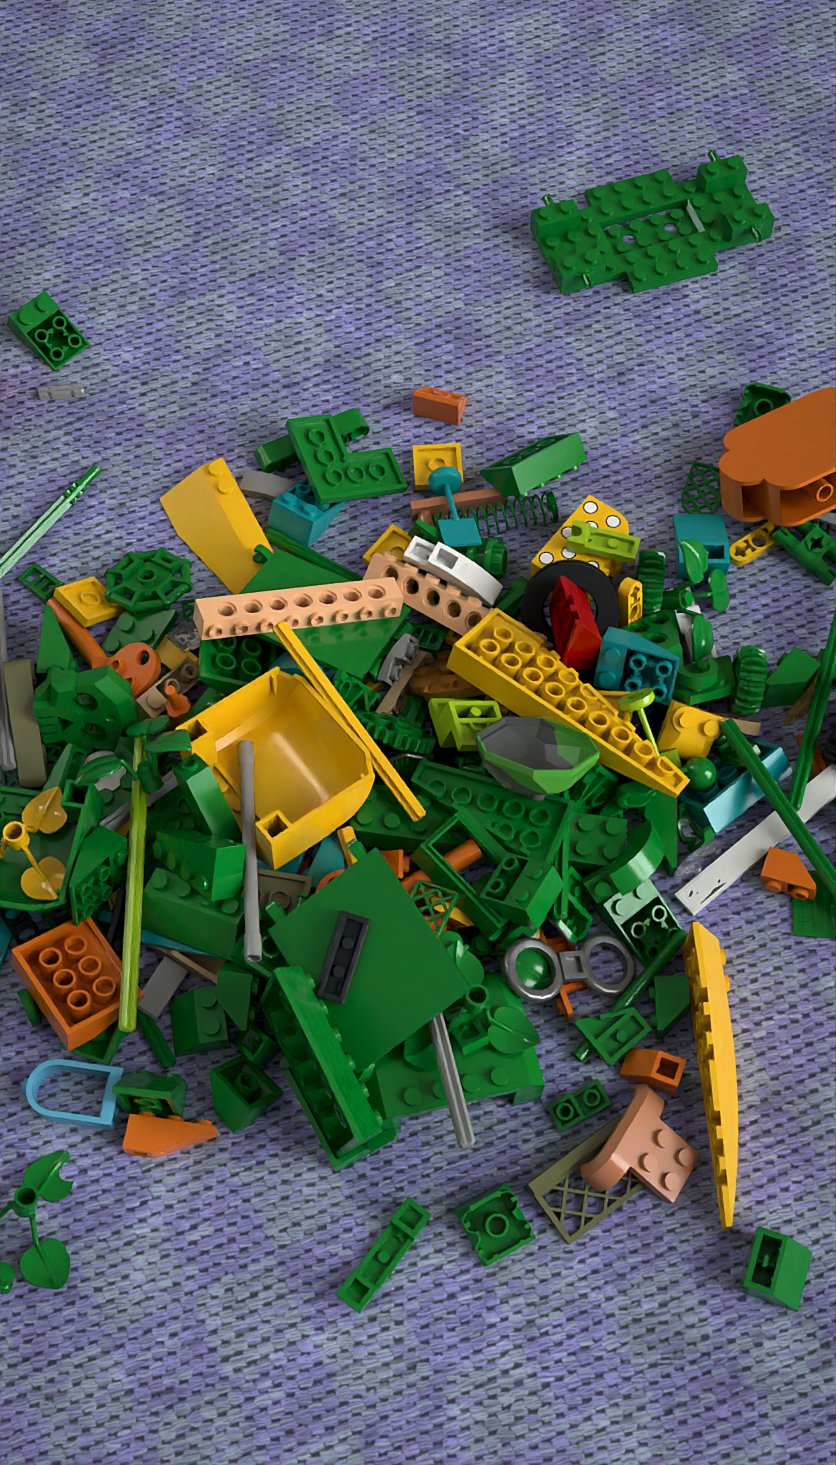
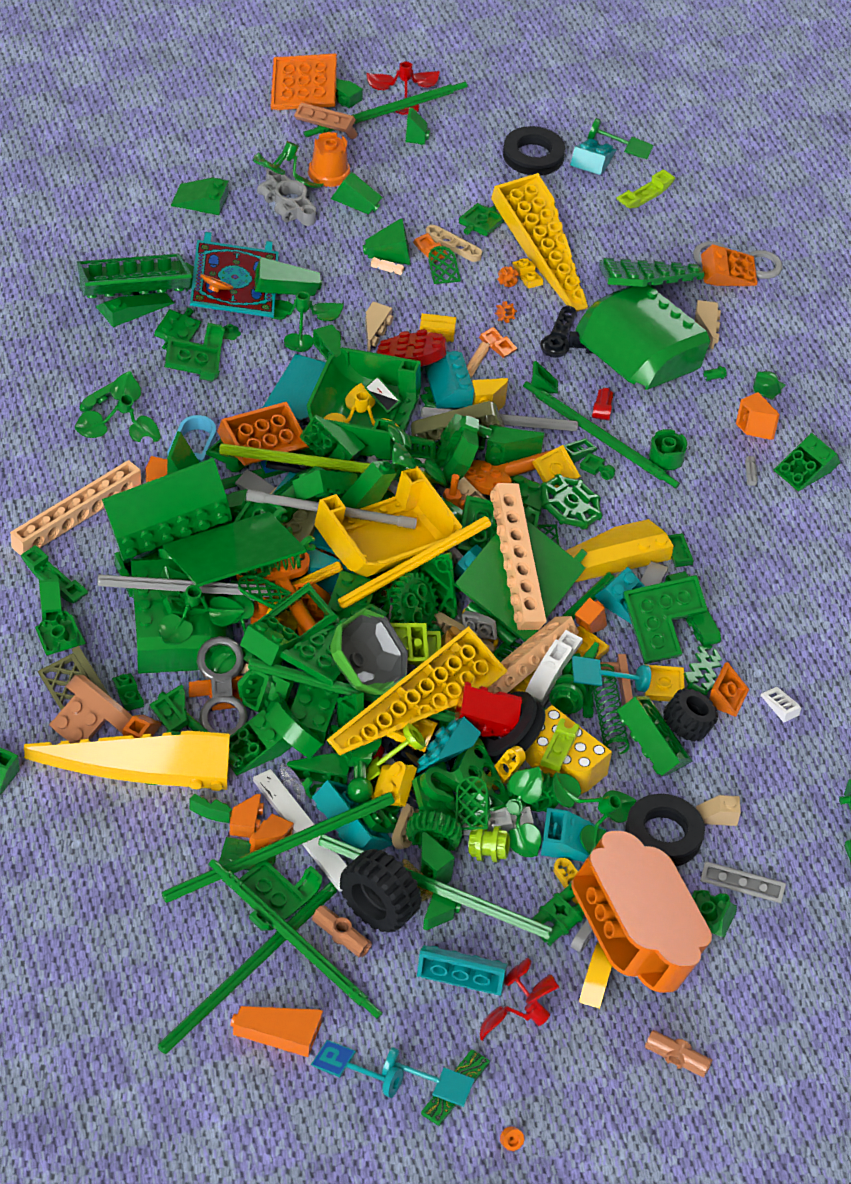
camera: 90 degrees right, 15 degrees down
(41, 476) = (668, 449): none -> green brick
(70, 562) = (594, 464): none -> green plate
(202, 458) = (681, 554): none -> green plate
(246, 1247) = (74, 508): none -> light nougat brick
(341, 956) = (238, 534): black slope -> none
(356, 539) = (591, 616): none -> orange slope
(400, 427) = (691, 677): none -> piece
(445, 1246) = (49, 598): none -> green slope
(453, 341) = (783, 714): none -> white slope
(493, 430) = (690, 714): none -> black tyre
(622, 403) = (721, 810): none -> tan slope
(656, 481) = (674, 809): none -> black tyre
(672, 494) = (612, 805): none -> green plant
(705, 380) = (743, 880): none -> light grey slope
(731, 637) = (472, 798): none -> green window
(735, 625) = (489, 843): none -> lime piece
(763, 951) = (215, 811): none -> green slope
(764, 911) = (245, 815): none -> orange slope

